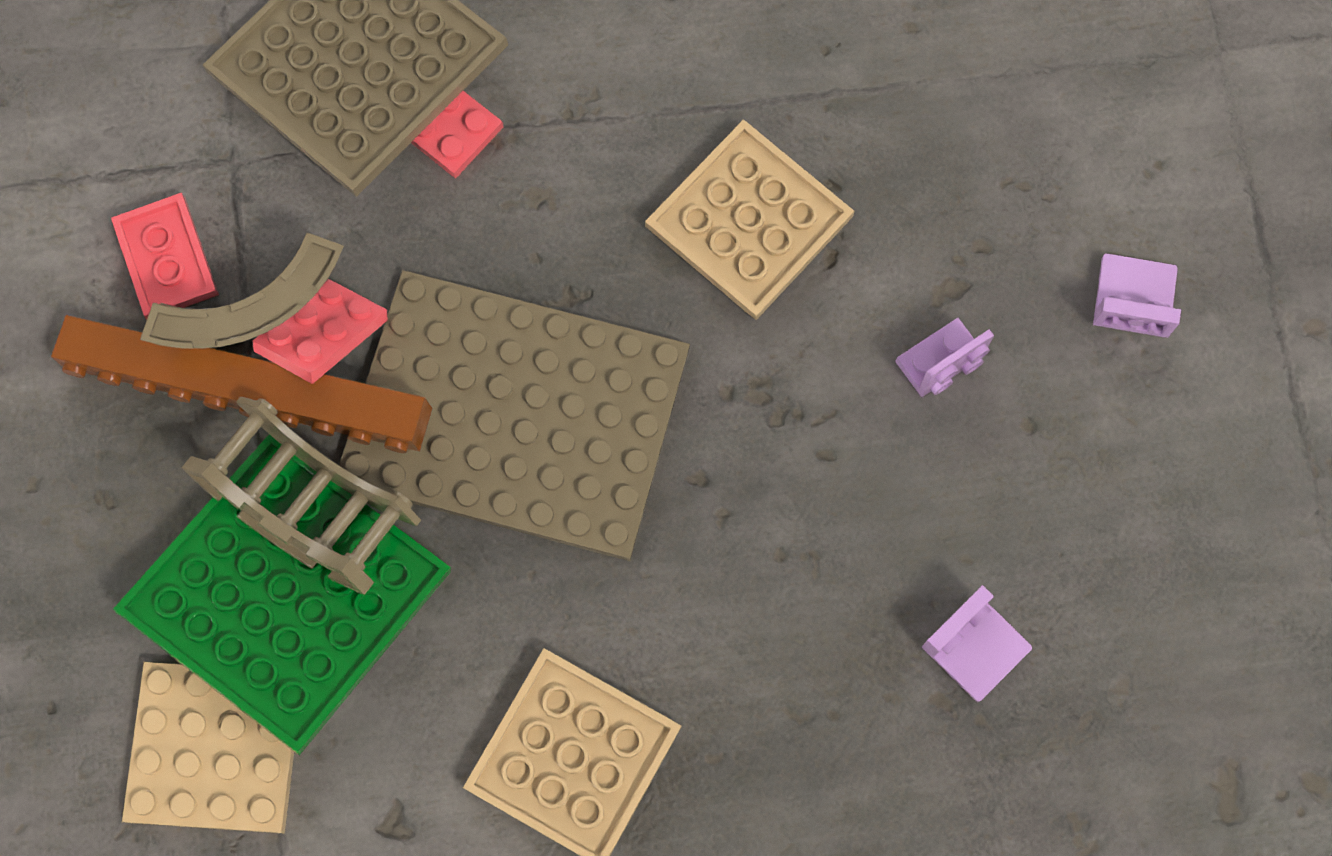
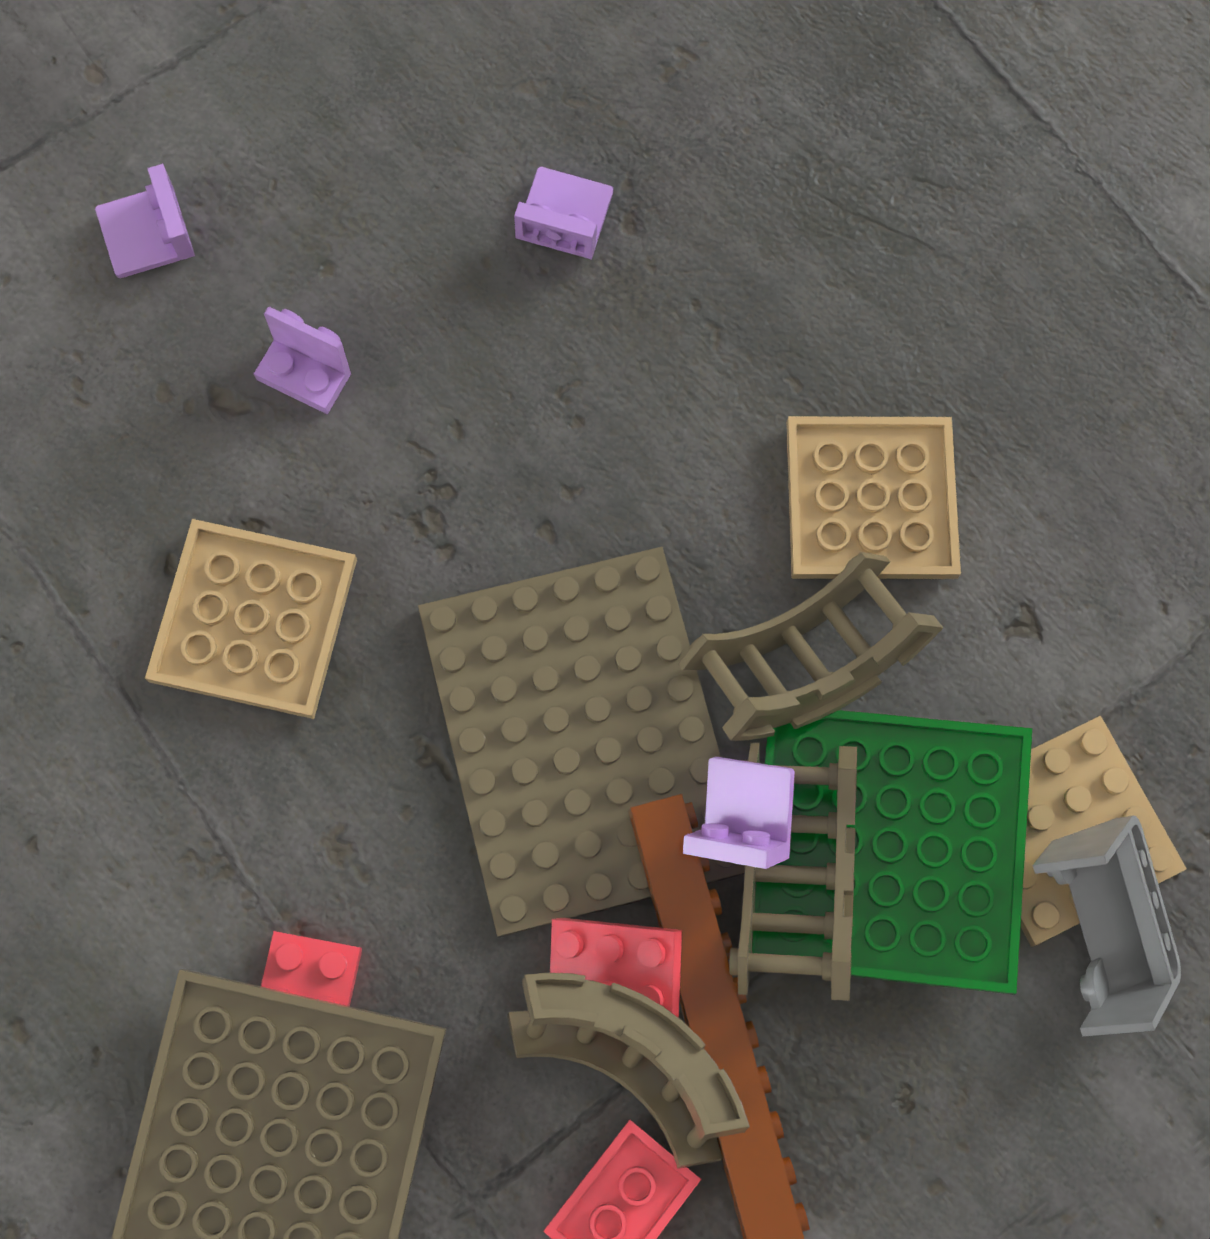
camera: 125 degrees left, 0 degrees up
(108, 737) = (1122, 923): none -> light grey windscreen
(356, 470) = (745, 814): none -> lavender bracket
(428, 613) = (831, 690): none -> dark tan fence

